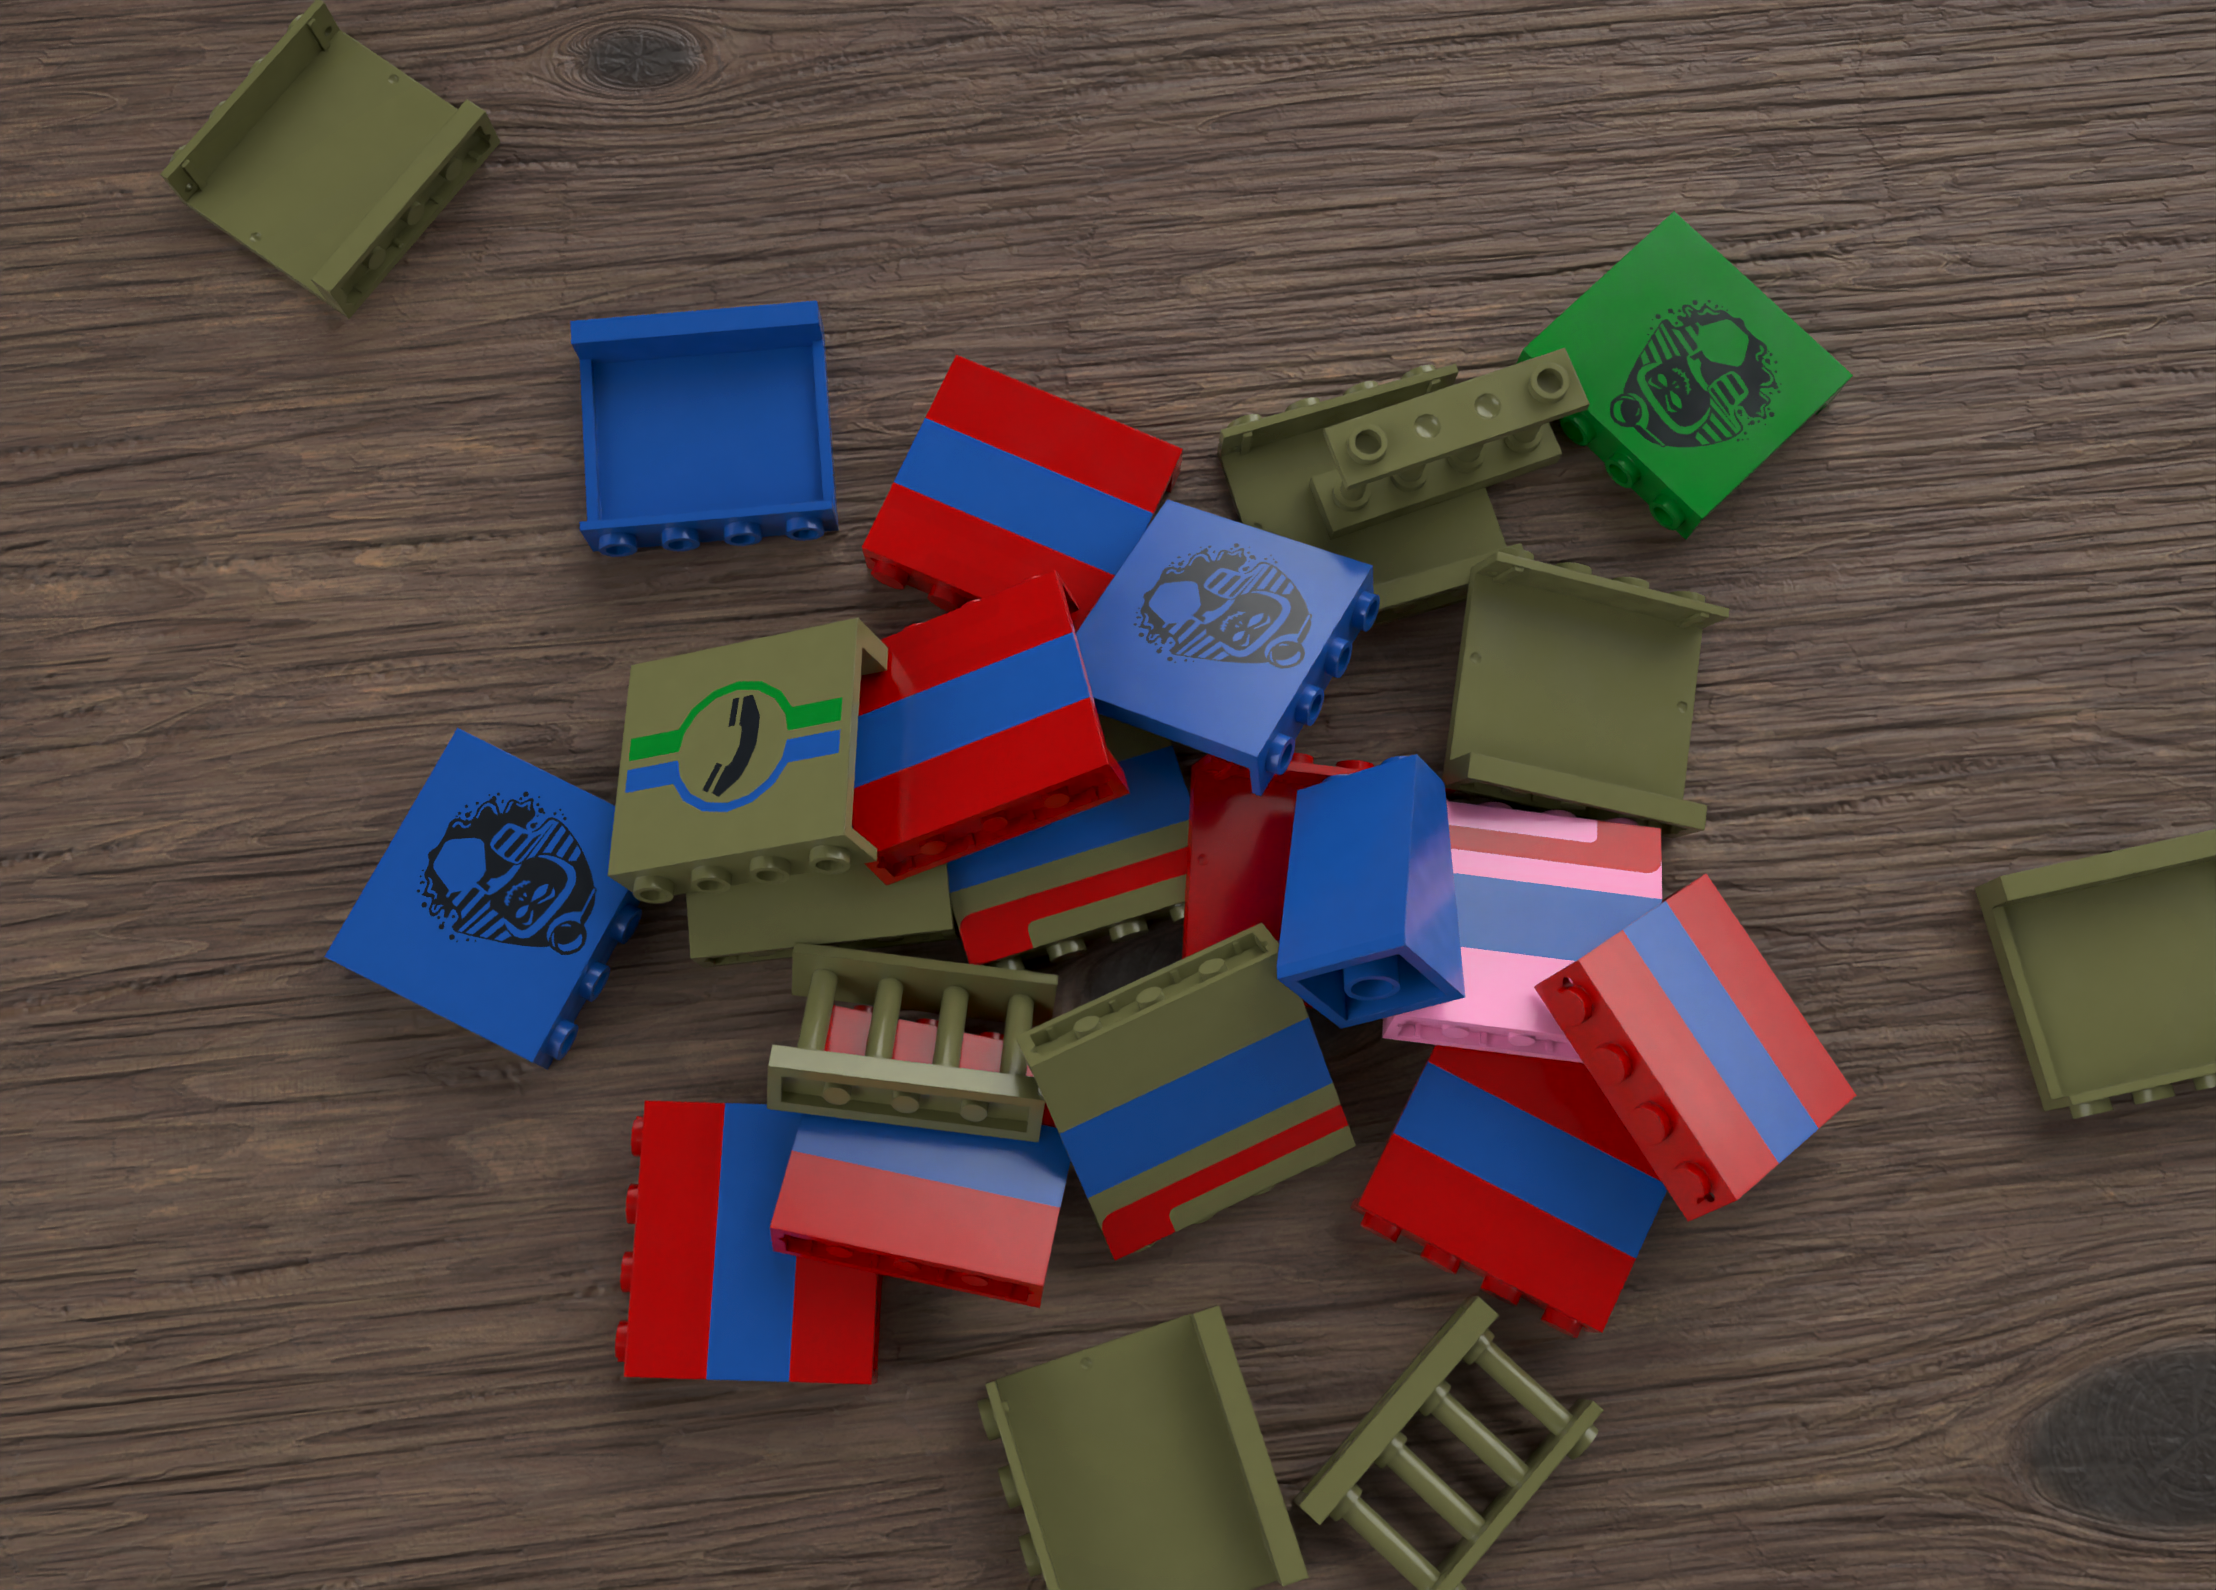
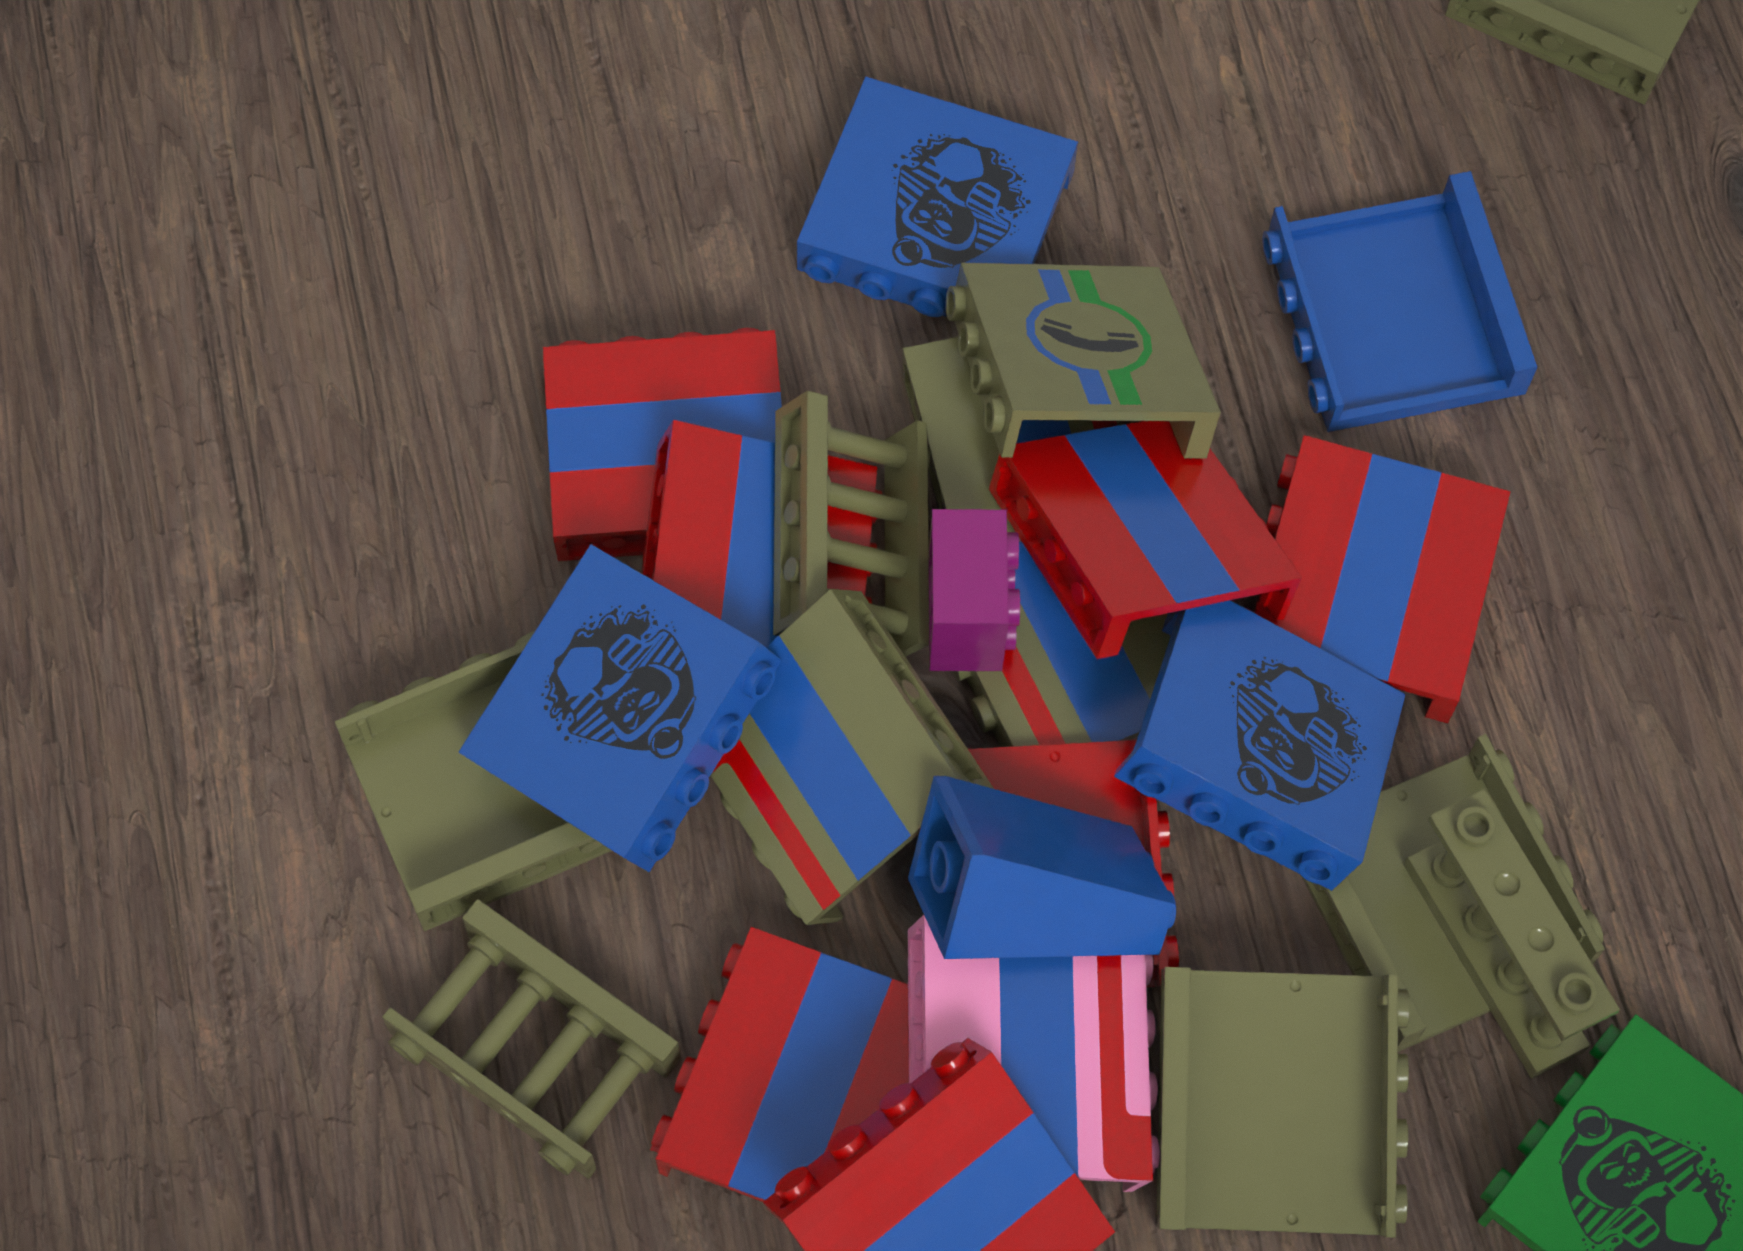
camera: 85 degrees right, 10 degrees down
(1023, 916) = (972, 590): none -> magenta brick
(1111, 1326) = (621, 707): none -> blue panel

